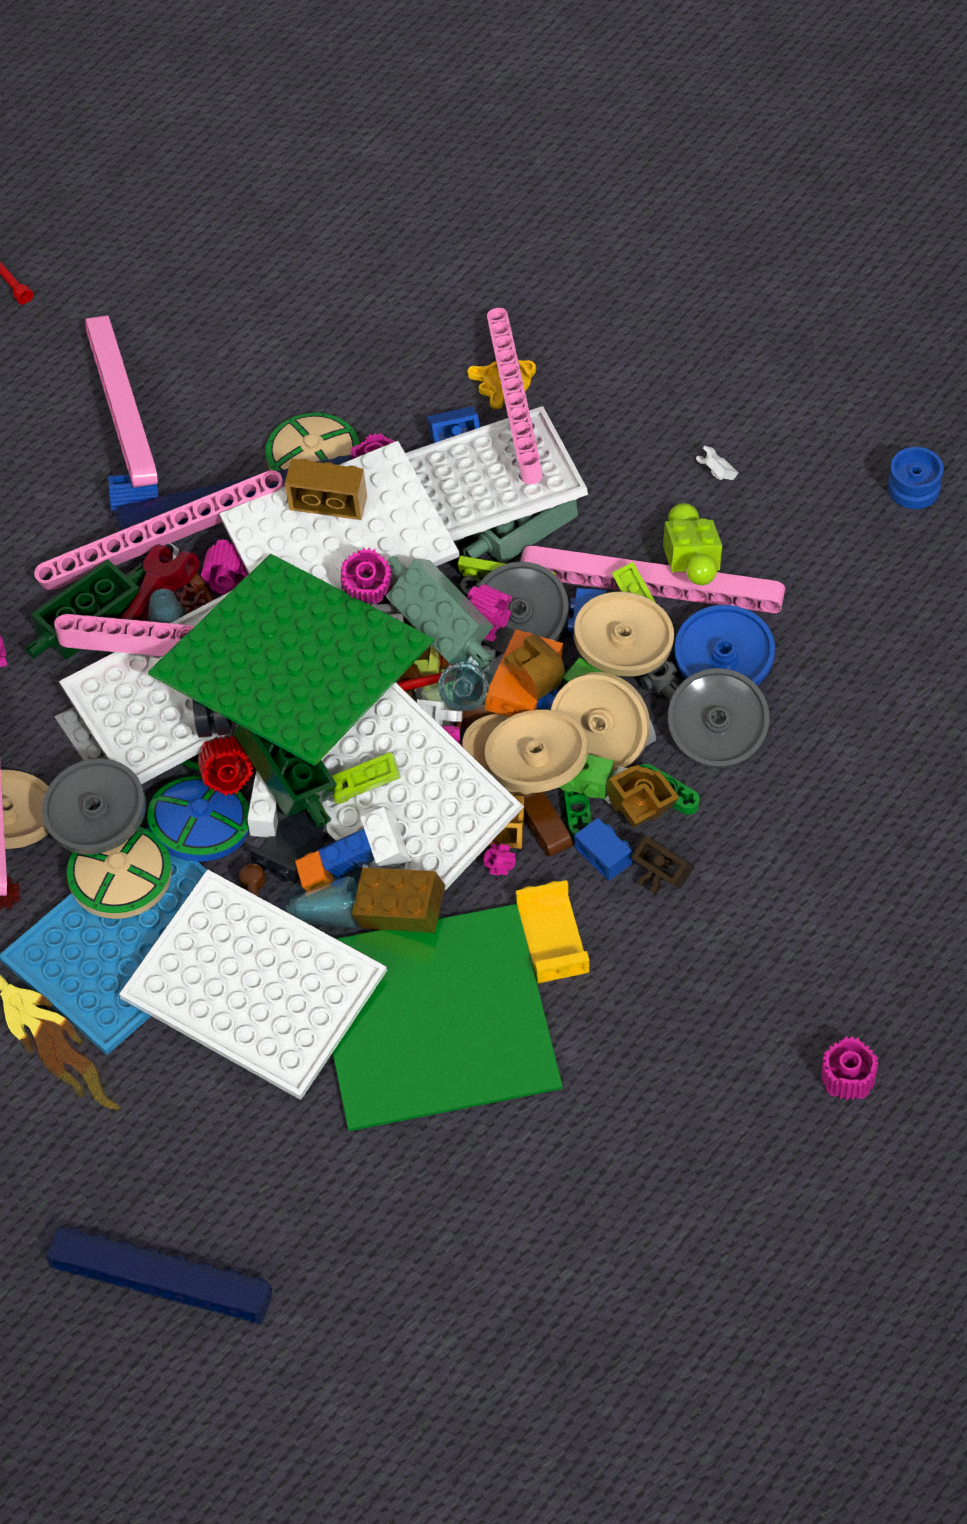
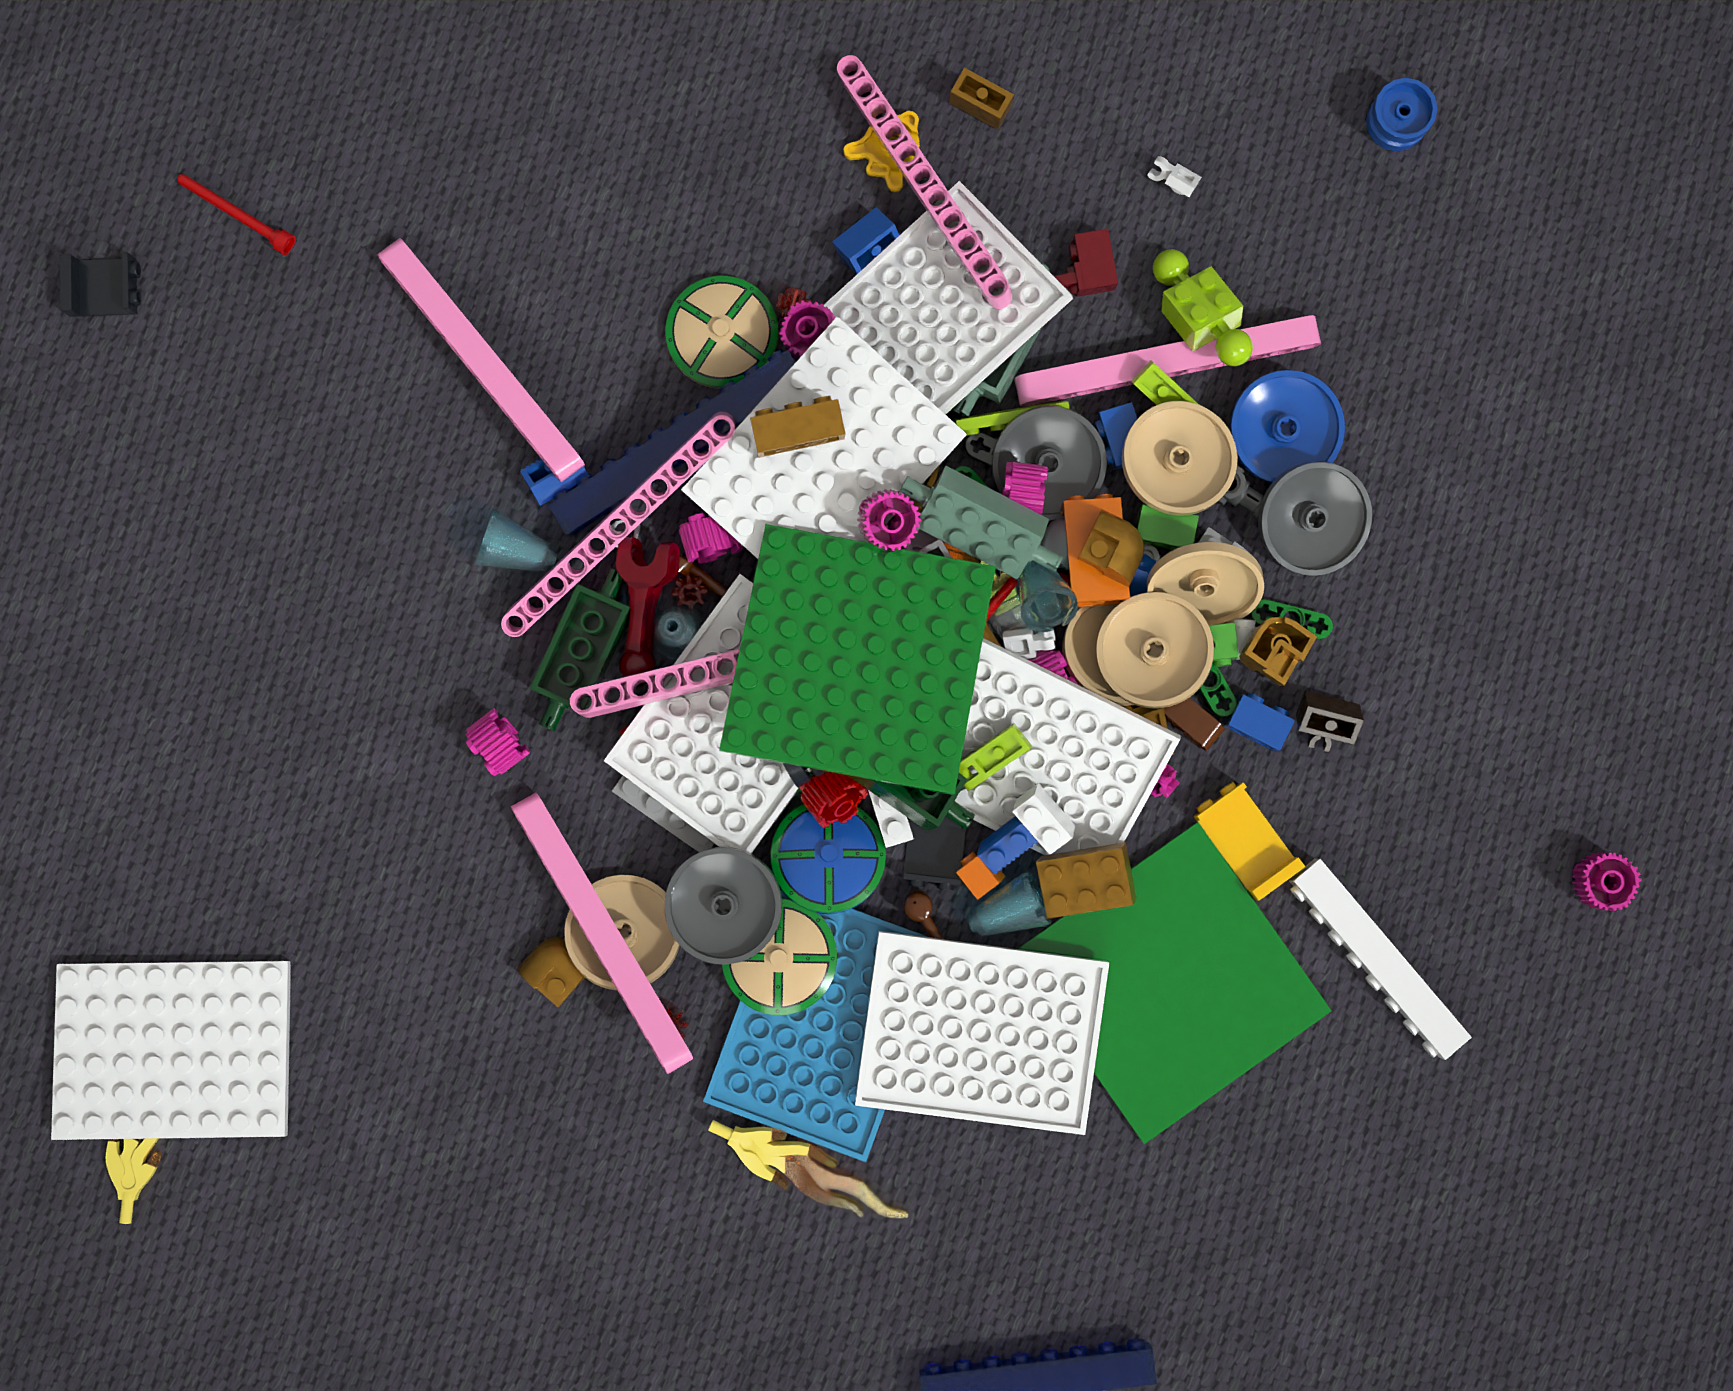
camera: 25 degrees left, 30 degrees up
(70, 522) = (514, 547): none -> clear light blue cone
(588, 366) = (981, 98): none -> pearl gold brick
(620, 499) = (1094, 264): none -> dark red hinge
(622, 1061) = (1379, 958): none -> white brick

